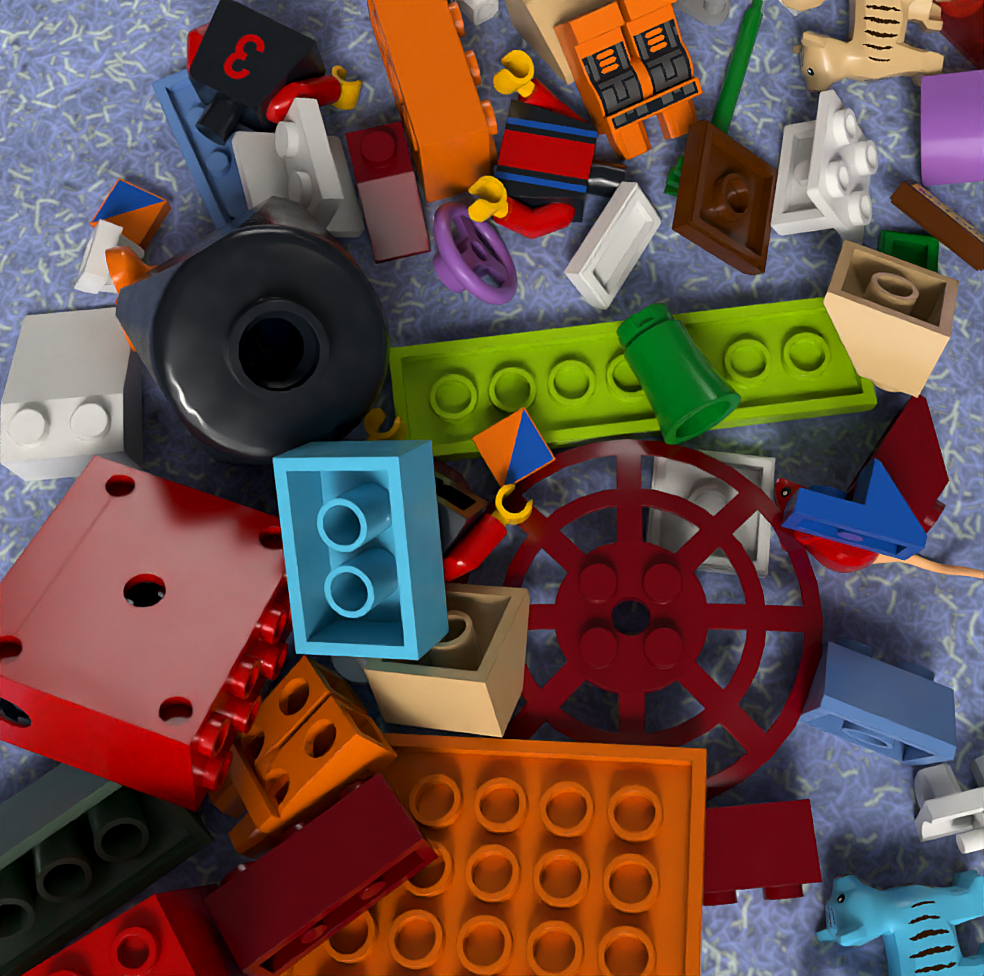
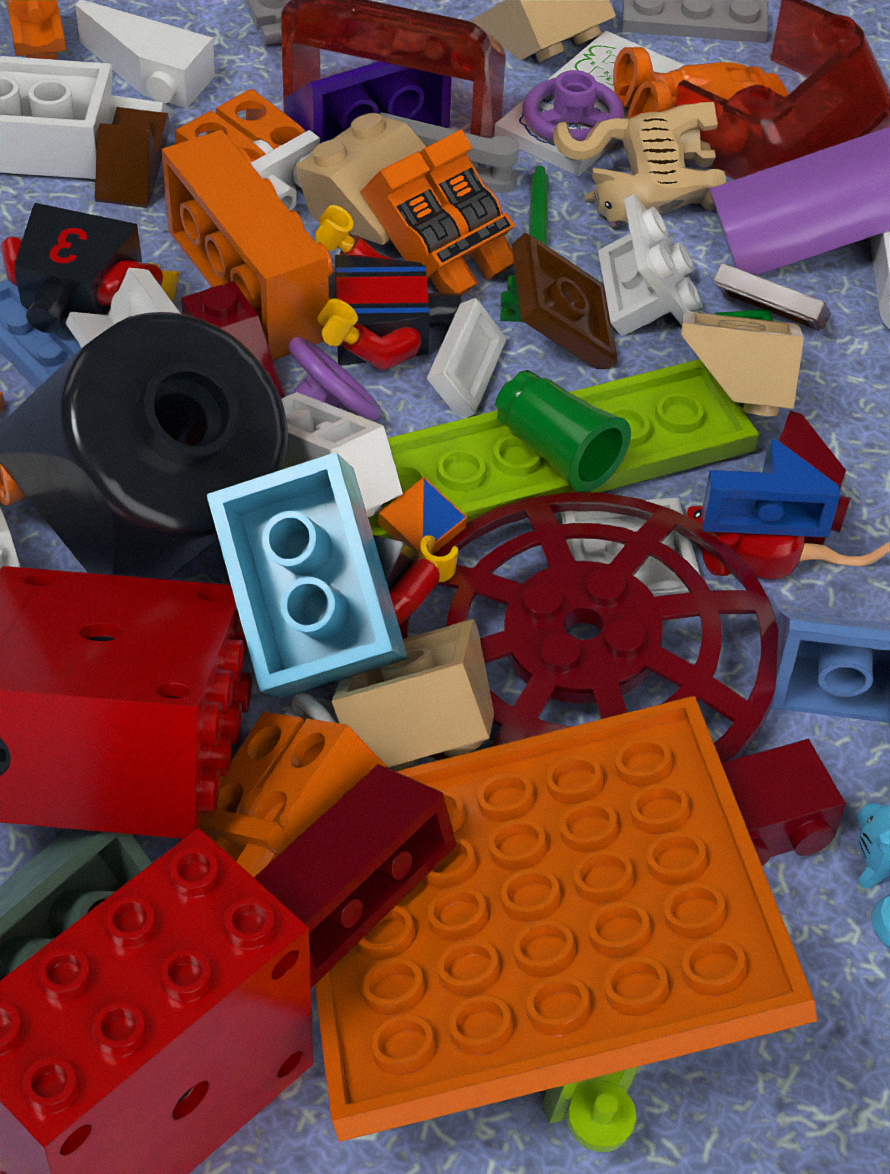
camera: 20 degrees left, 25 degrees down
(439, 355) = (322, 429): none -> white slope

